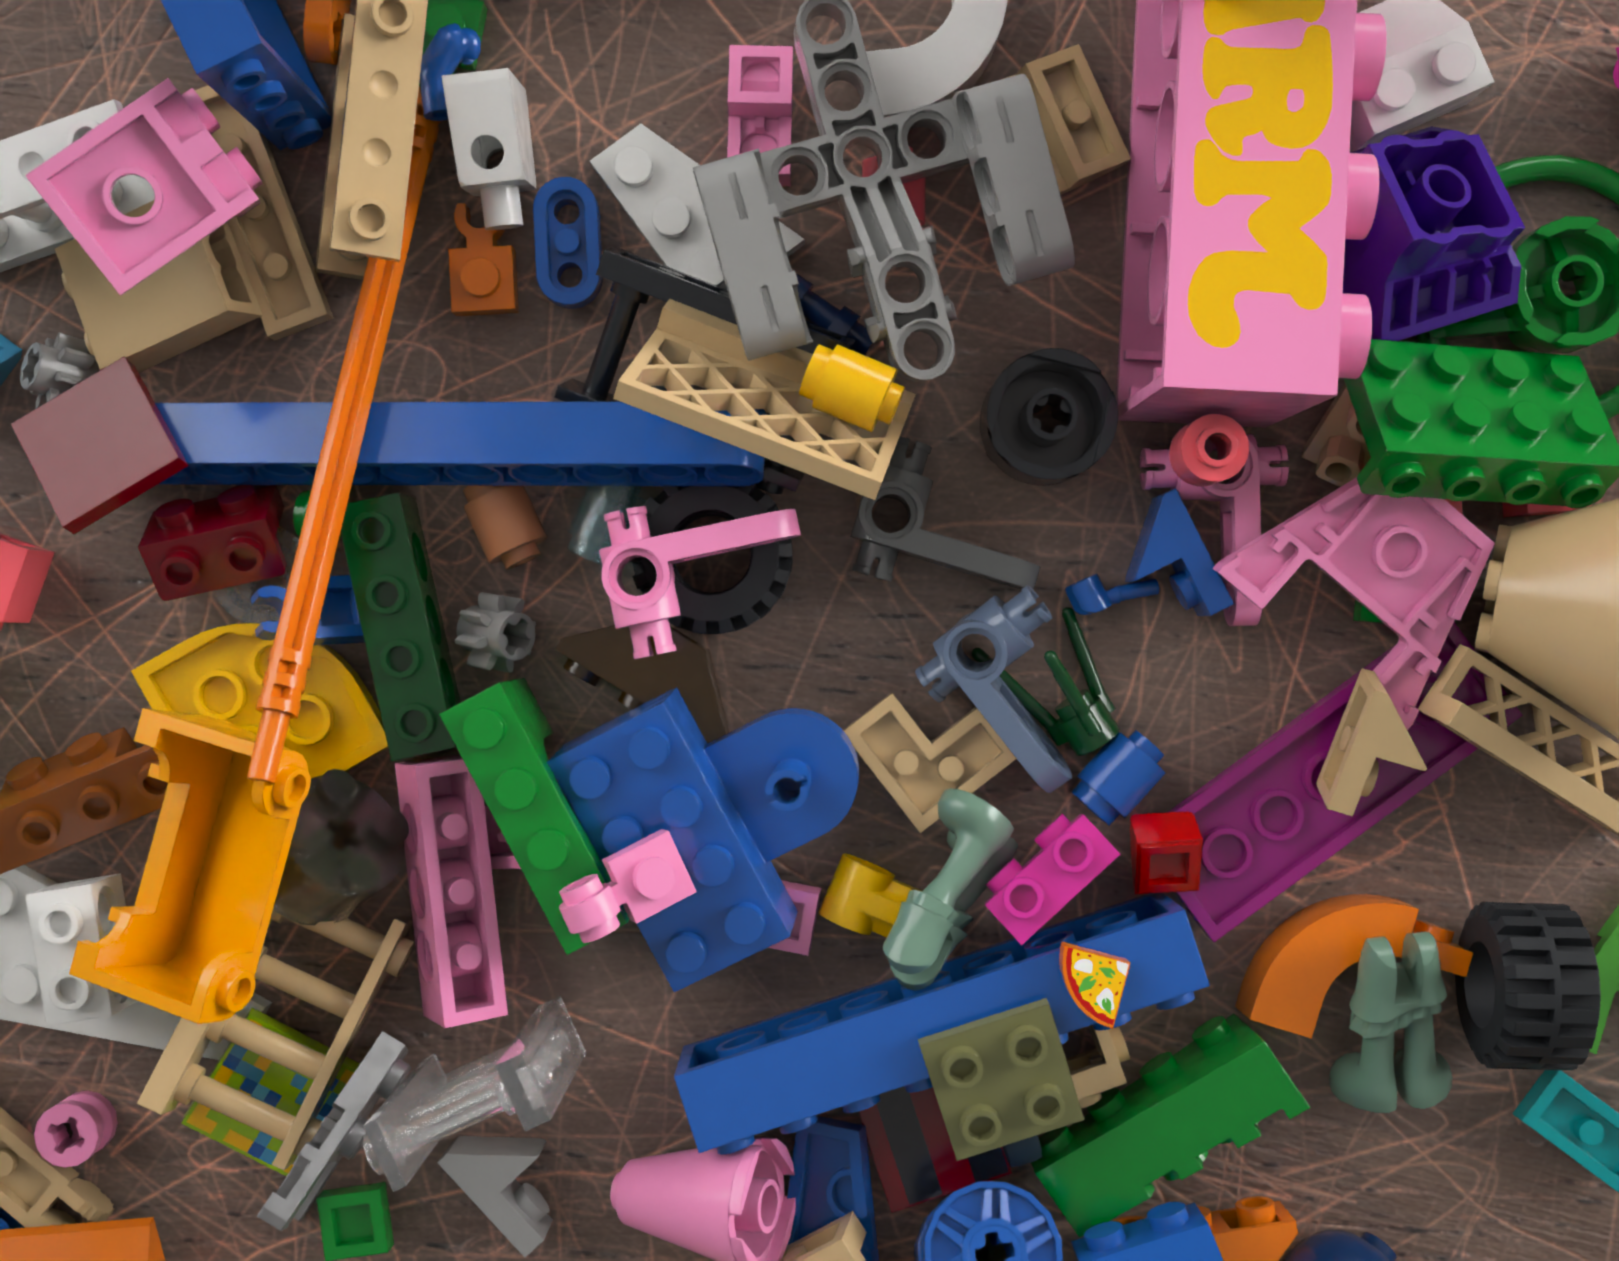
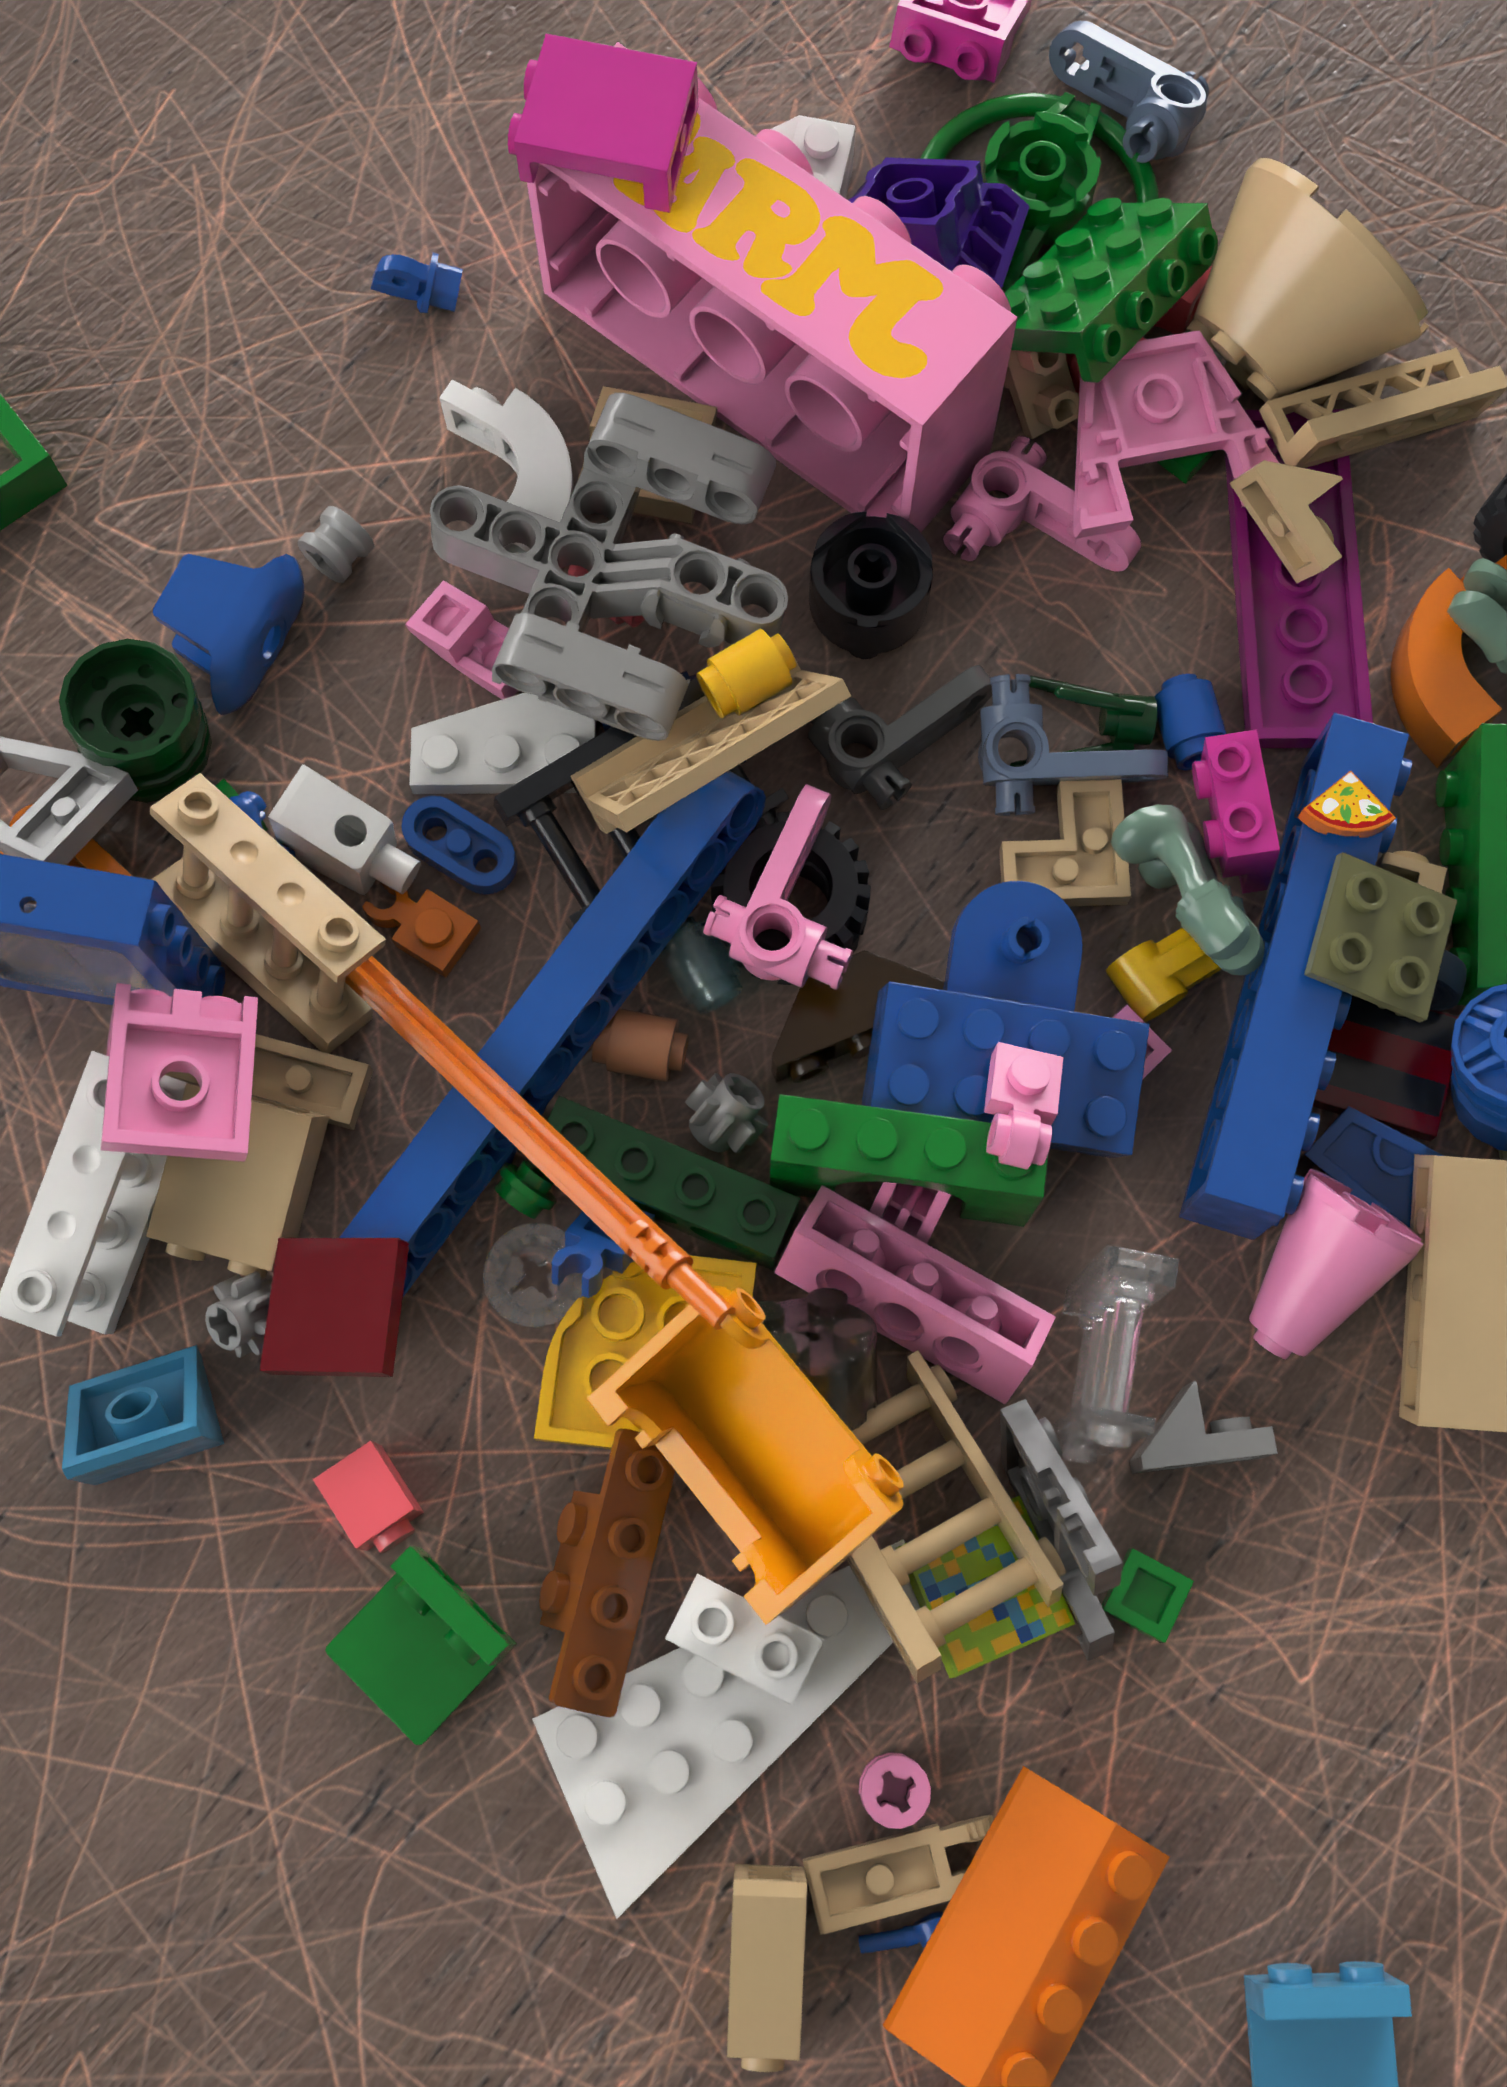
camera: 55 degrees left, 15 degrees down
(214, 542) = (482, 1287): dark red bracket -> none
(1091, 597) = (1030, 652): blue hand -> none
(1165, 852) = (1281, 718): red slope -> none
(1173, 539) = (1032, 560): blue slope -> none
(1189, 455) = (984, 471): coral brick -> none

